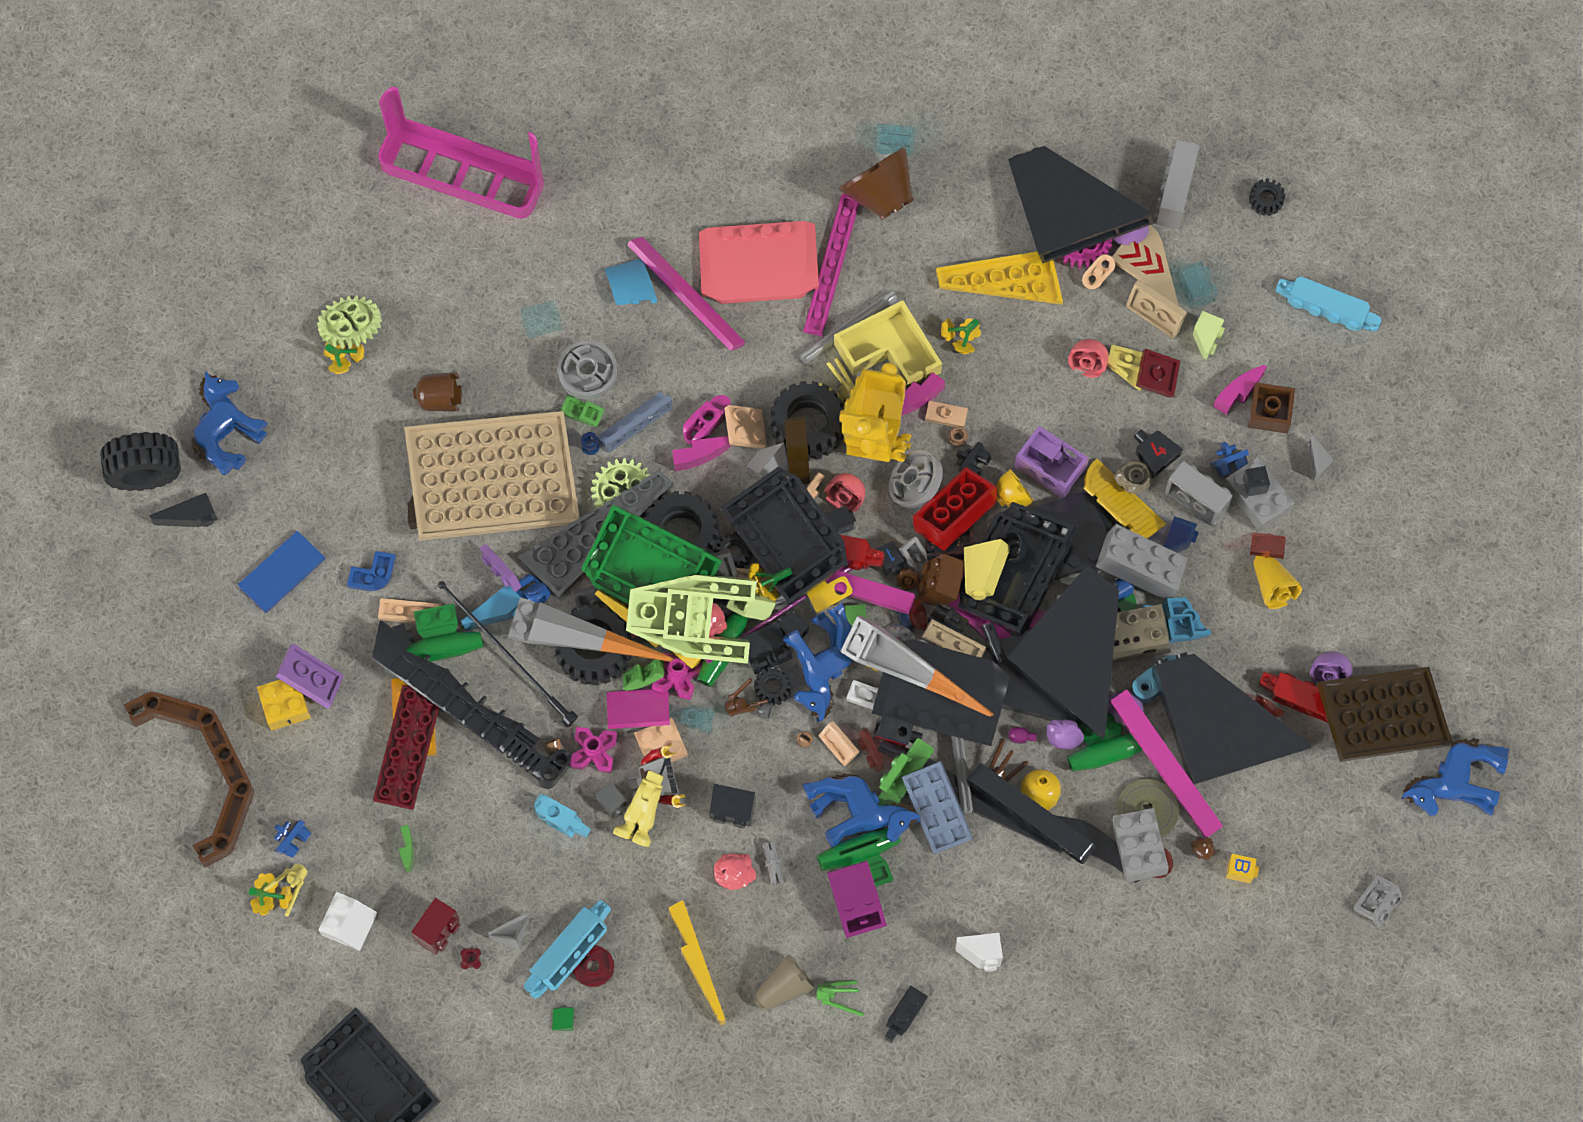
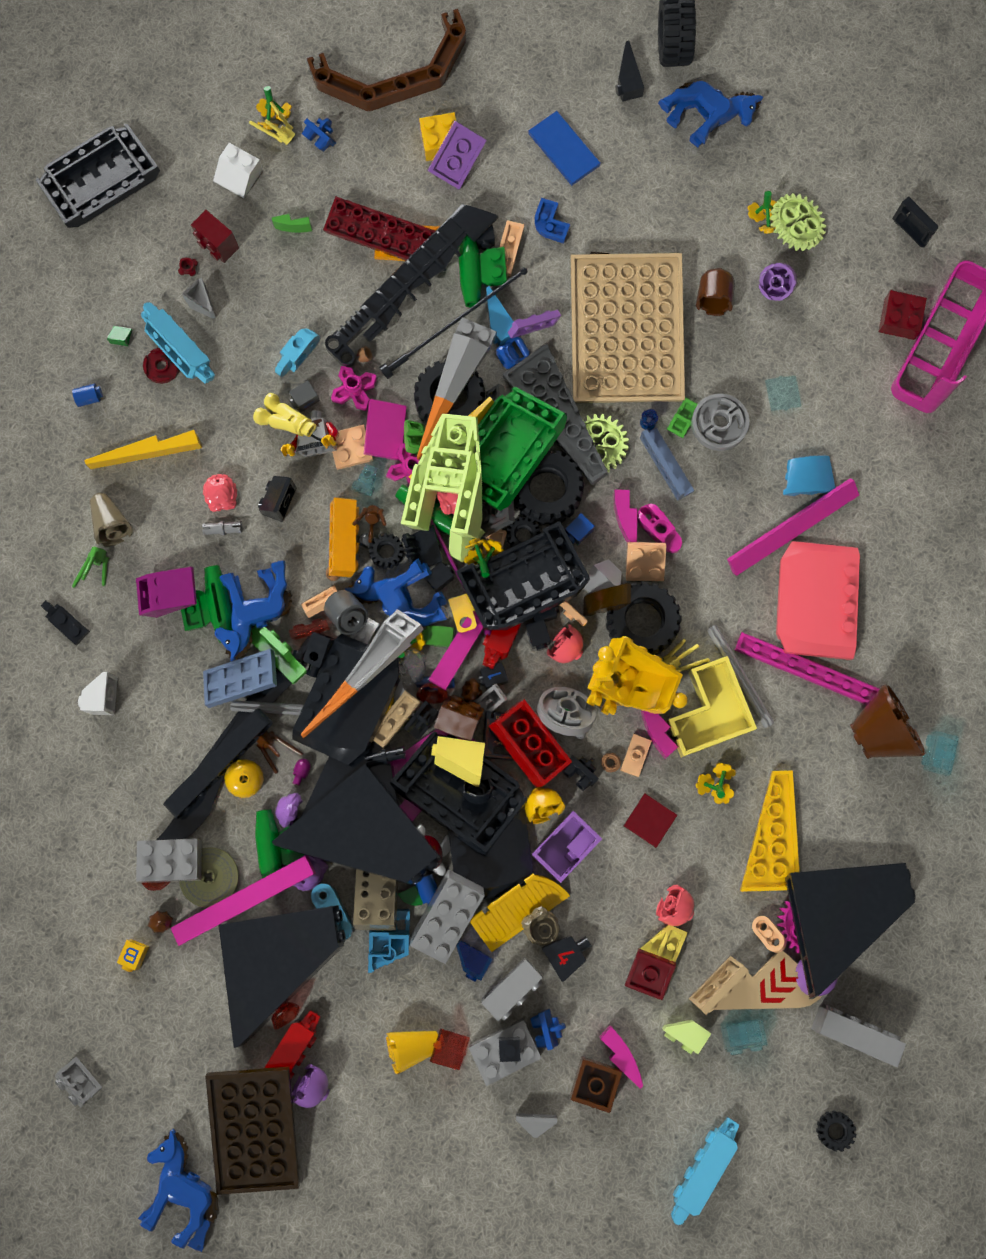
camera: 100 degrees right, 10 degrees up
(339, 208) = (916, 224): none -> black container
(422, 332) = (777, 281): none -> medium lavender cylinder
(442, 212) = (902, 315): none -> dark red brick
(641, 1039) = (87, 395): none -> blue brick
(719, 494) = (579, 529): none -> blue brick
(766, 730) = (343, 537): none -> light orange brick
(849, 710) = (345, 612): none -> dark grey piece
(1008, 393) = (650, 820): none -> dark red tile

